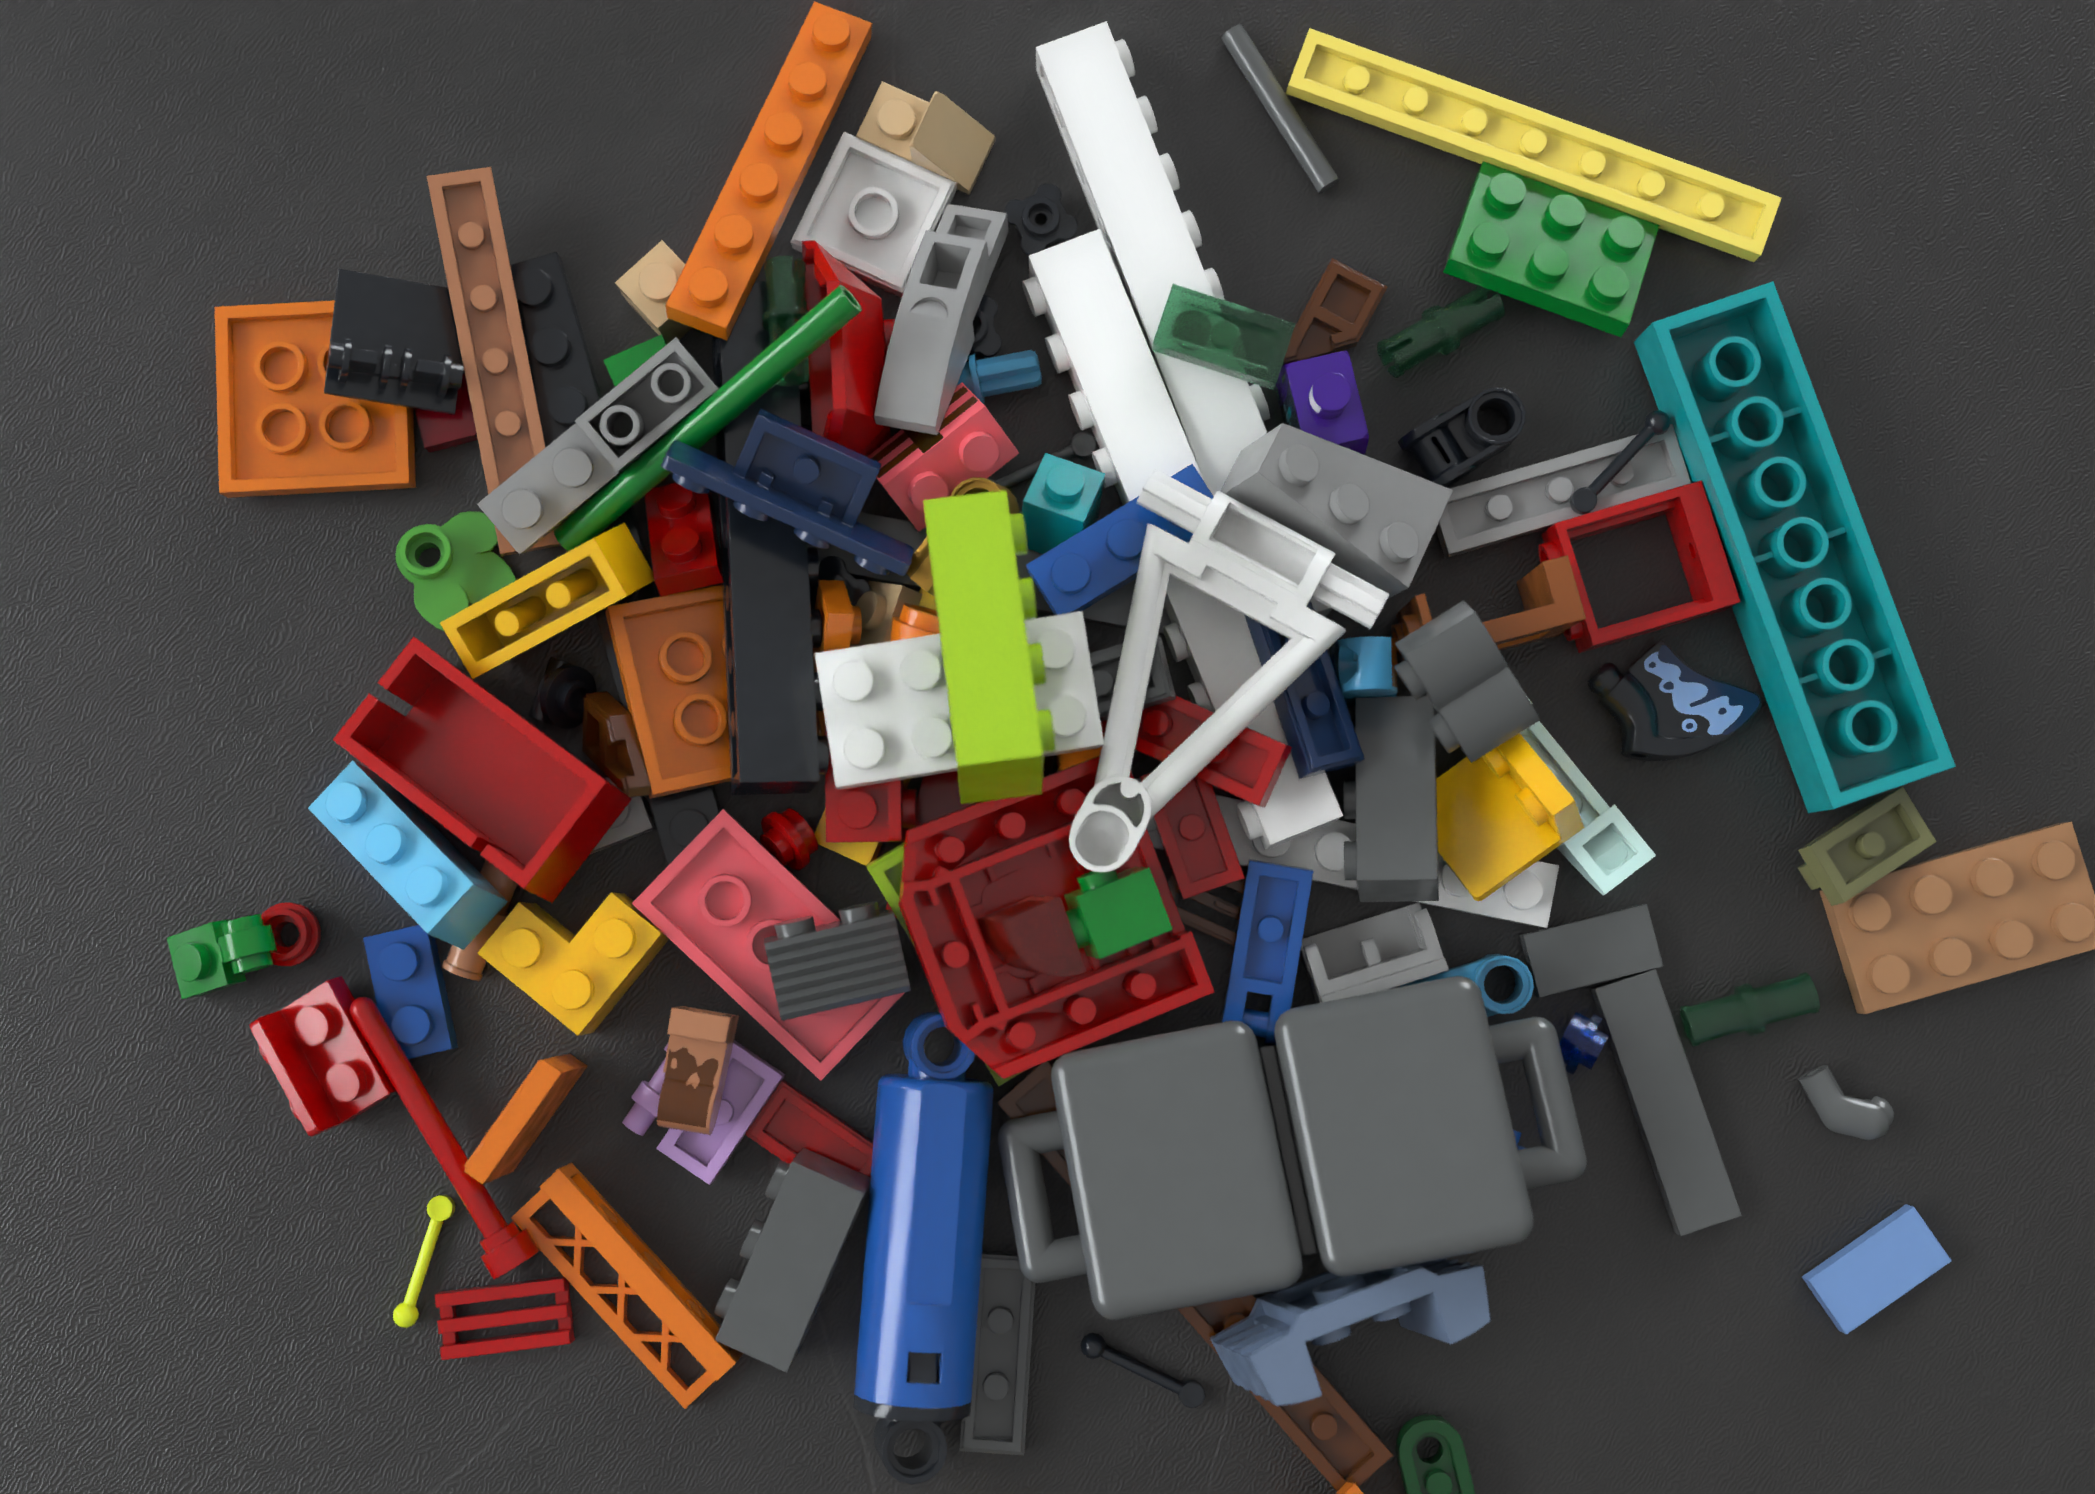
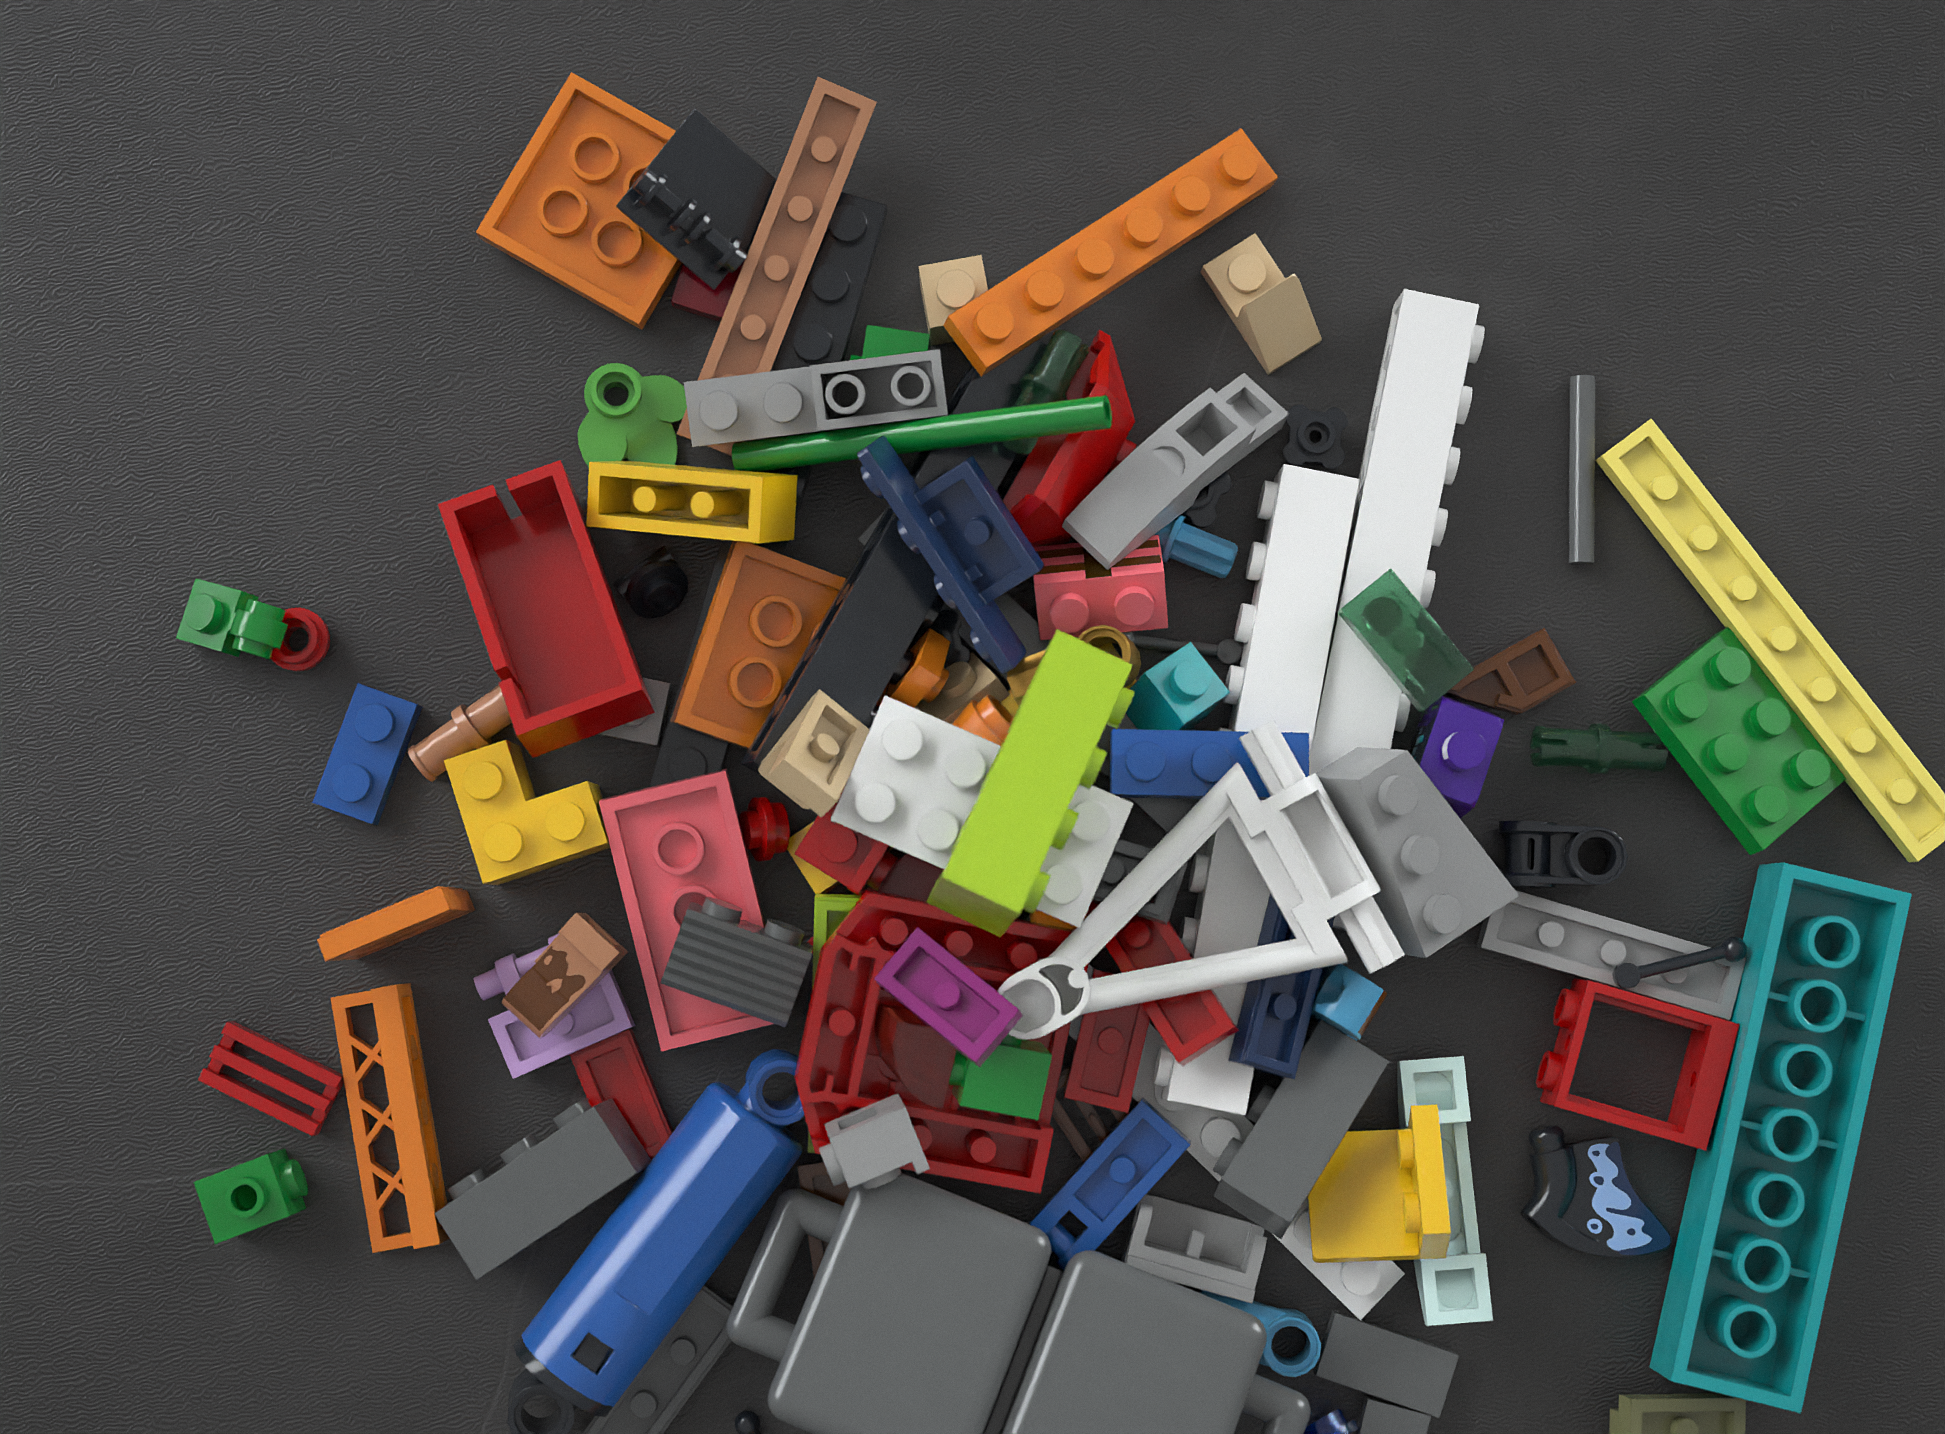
camera: 30 degrees right, 0 degrees up
(322, 1058) = (263, 764): red bracket -> none
(407, 856) = (438, 641): medium azure brick -> none
(438, 1209) = (275, 952): neon yellow hinge -> none
(502, 1242) = (311, 1015): red piece -> none
(550, 1426) = (252, 1195): none -> green brick
(613, 743) = (669, 655): reddish brown tile -> none
(682, 539) = (836, 520): red plate -> none
(788, 742) = (816, 754): none -> tan slope
(874, 212) = (1176, 341): white tile -> none
(1031, 873) = (948, 997): none -> magenta plate
(1047, 1039) = (872, 1145): none -> light grey brick
(1466, 682) = (1421, 1072): dark grey brick -> none
(1548, 601) = (1538, 1049): dark orange panel -> none

